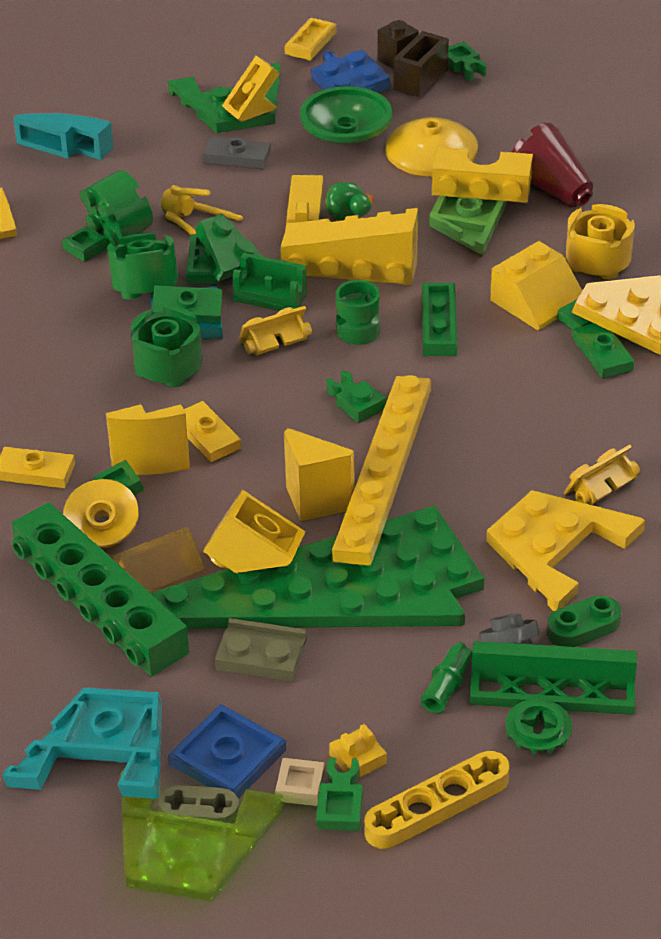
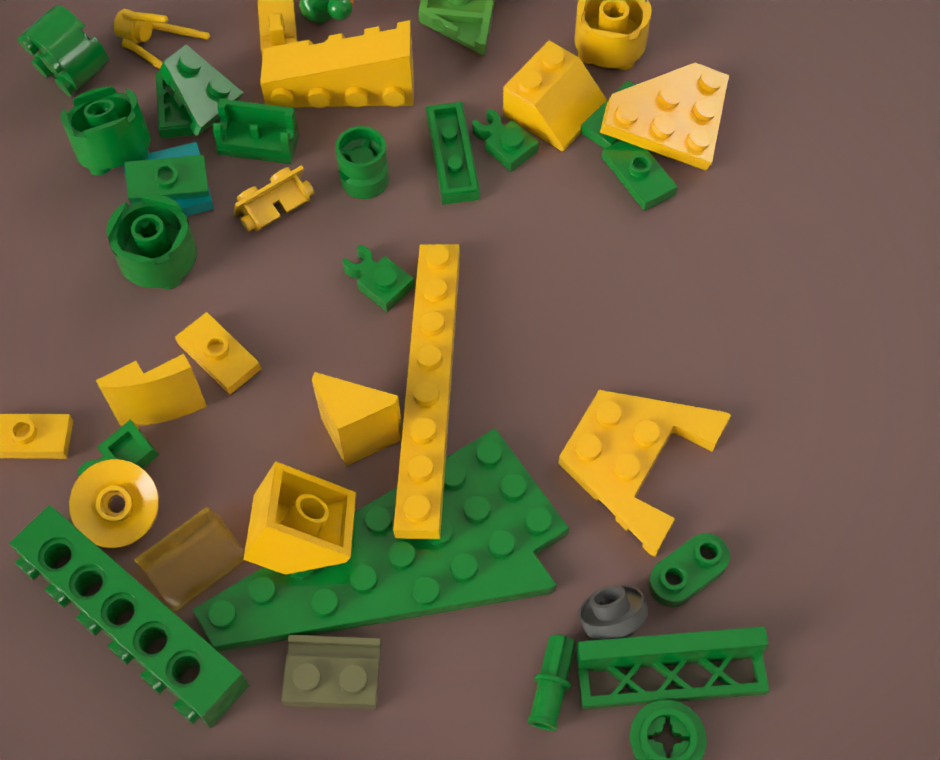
camera: 10 degrees left, 20 degrees up
(85, 243) = (37, 96): green tile -> none
(488, 318) = (506, 143): none -> green plate
(611, 467) = (660, 367): yellow hinge -> none

